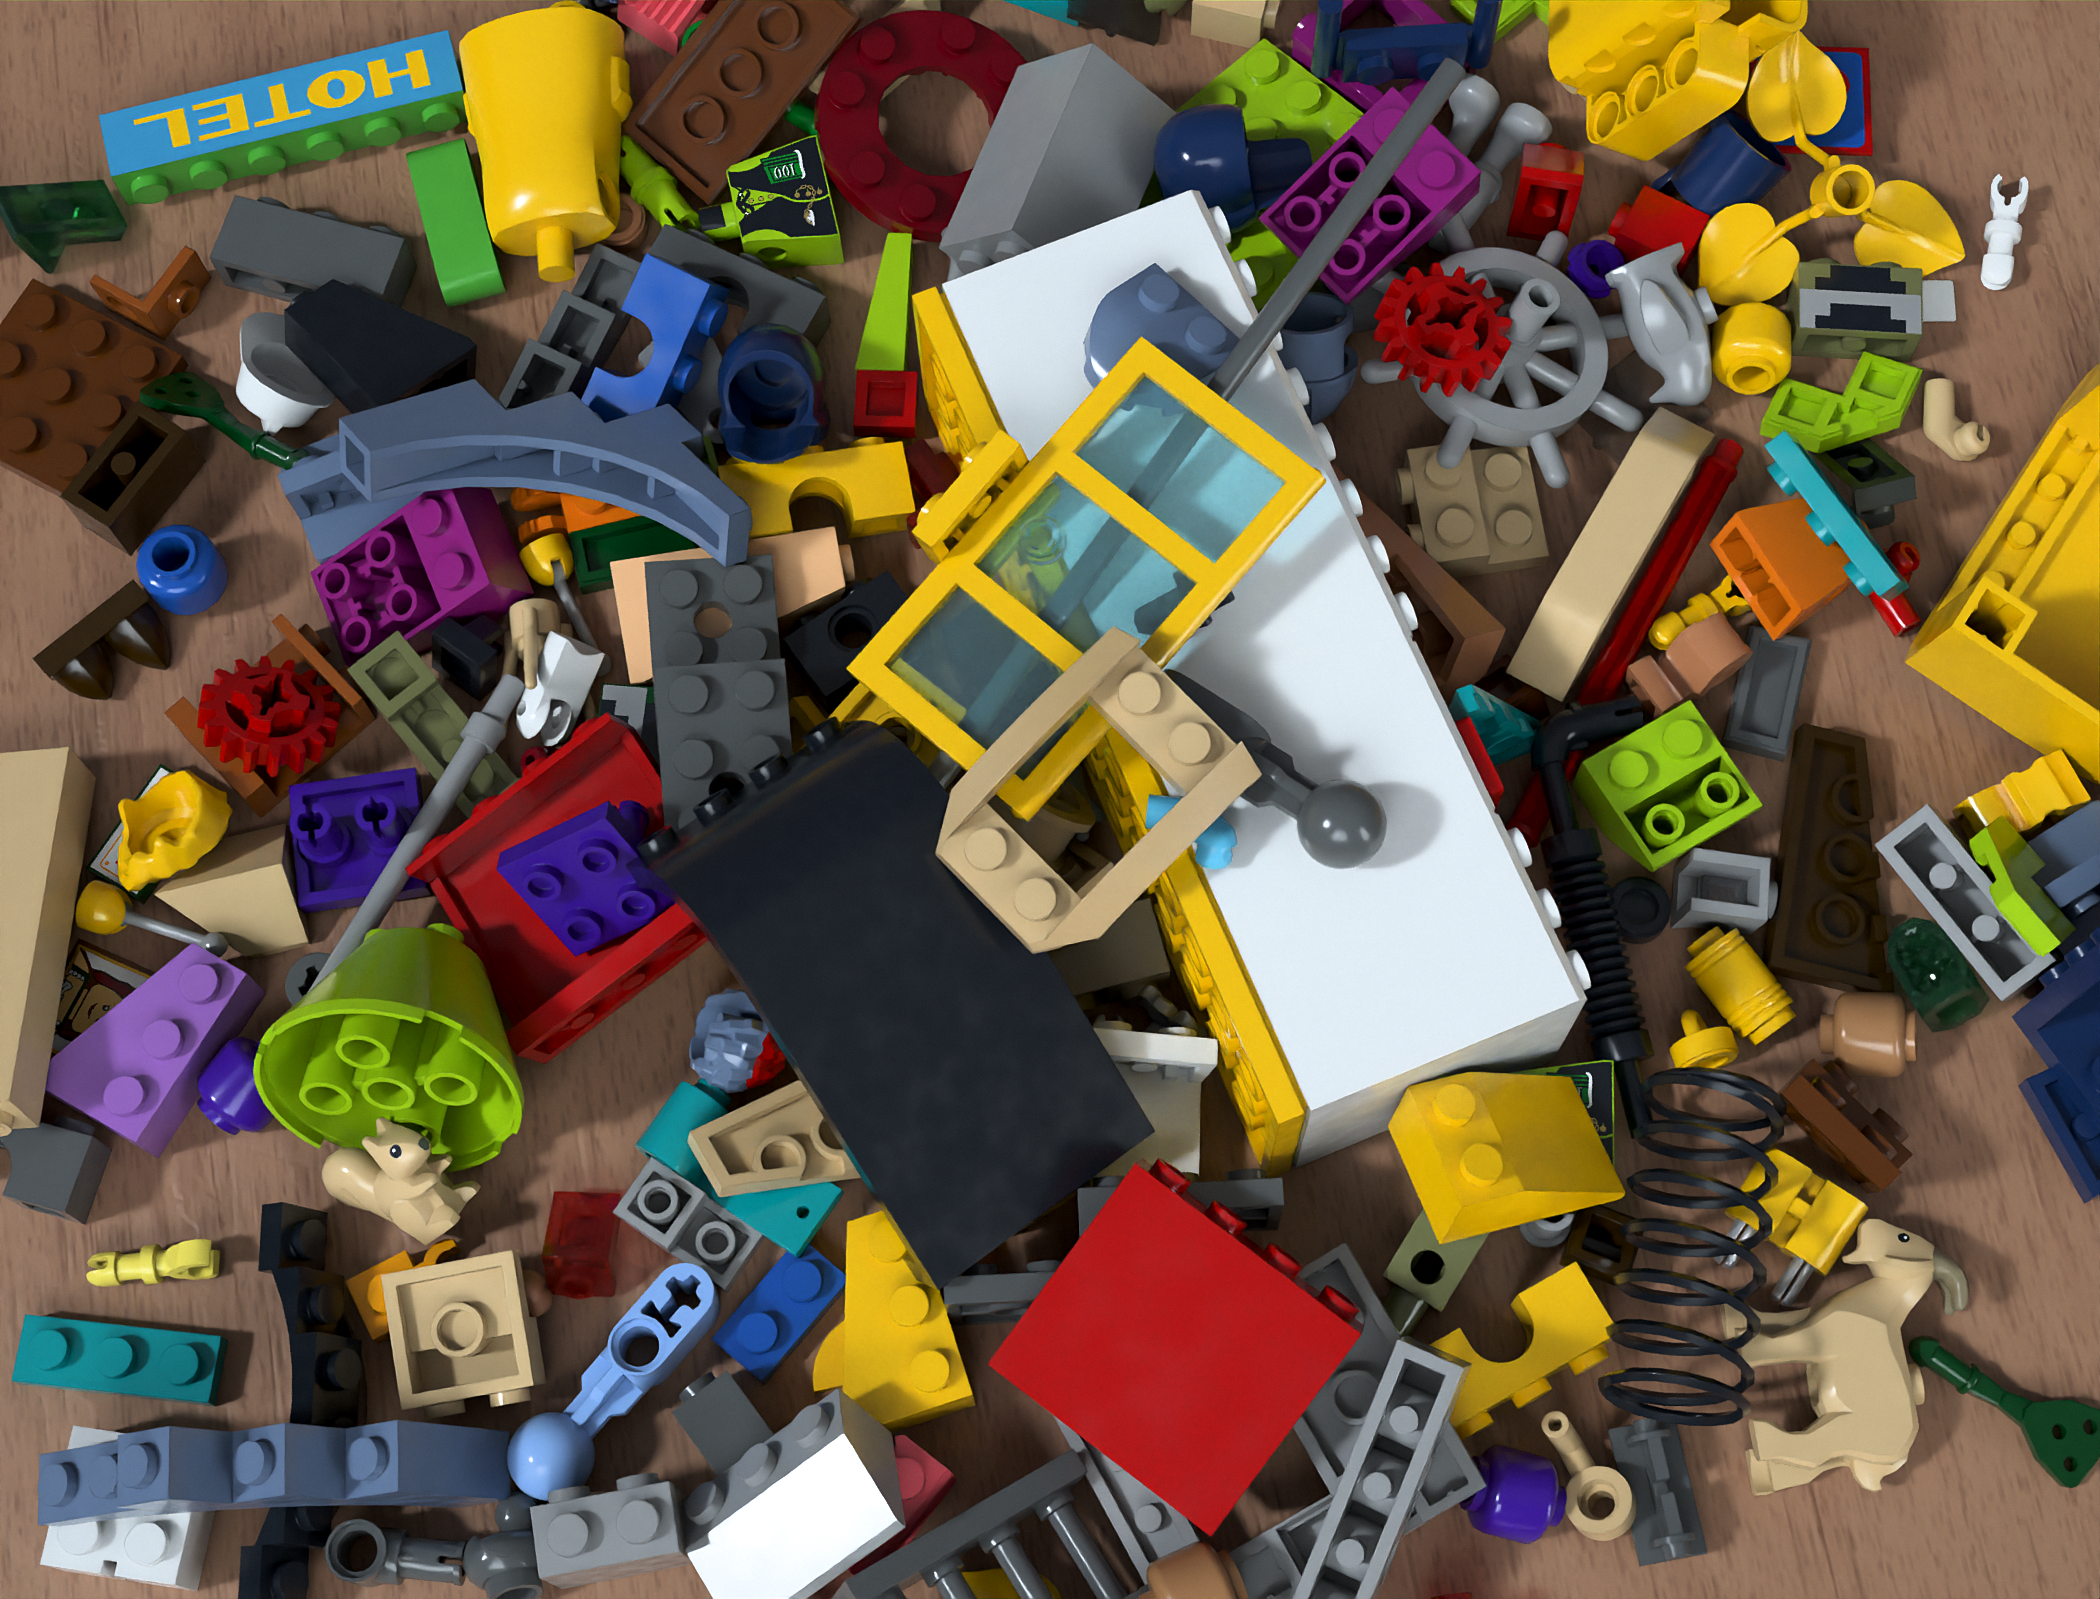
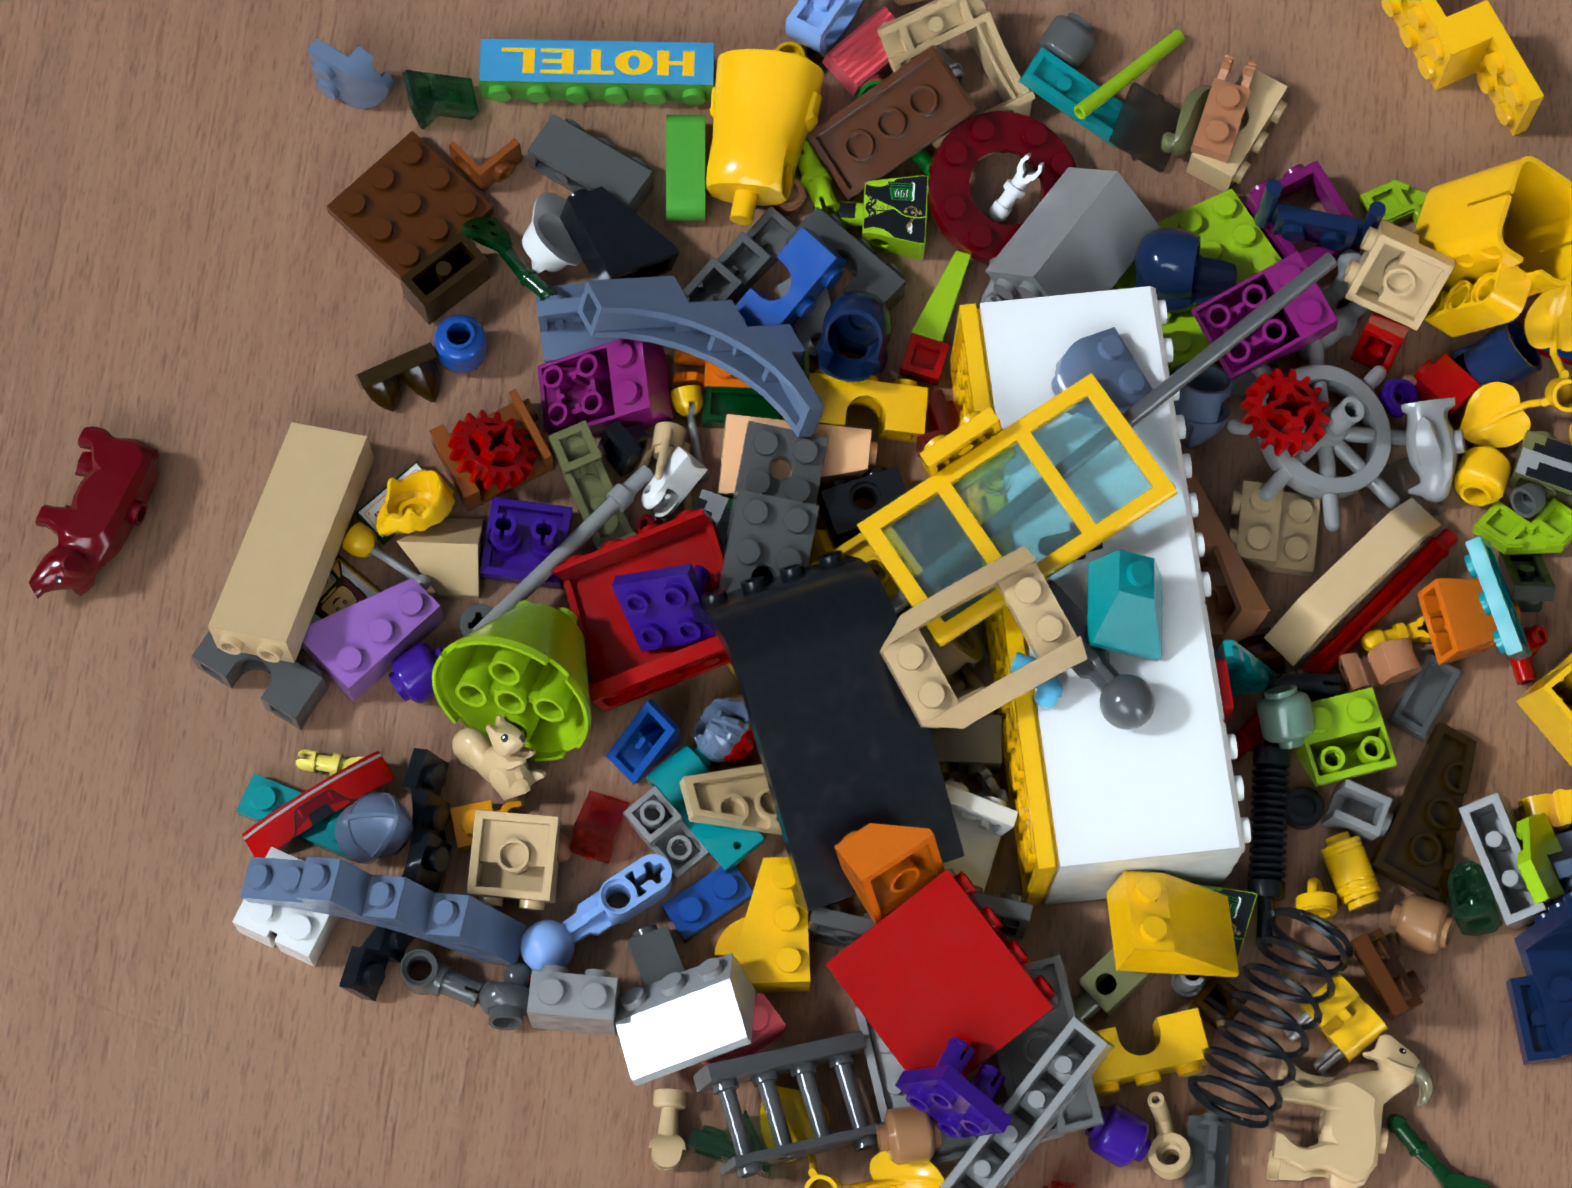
camera: 10 degrees right, 0 degrees up
(136, 1332) = (317, 804): none -> red sticker
(229, 1349) = (373, 828): none -> sand blue helmet
(619, 1094) = (645, 742): none -> blue slope
(949, 123) = (1013, 190): none -> white piece
(1043, 1182) = (888, 864): none -> orange slope
(1245, 1527) = (951, 1099): none -> dark purple plate
(1294, 674) = (1125, 605): none -> teal slope
(1545, 86) = (1396, 275): none -> tan plate
(1577, 779) = (1285, 716): none -> sand green head
(1835, 371) = (1528, 506): none -> dark grey hinge

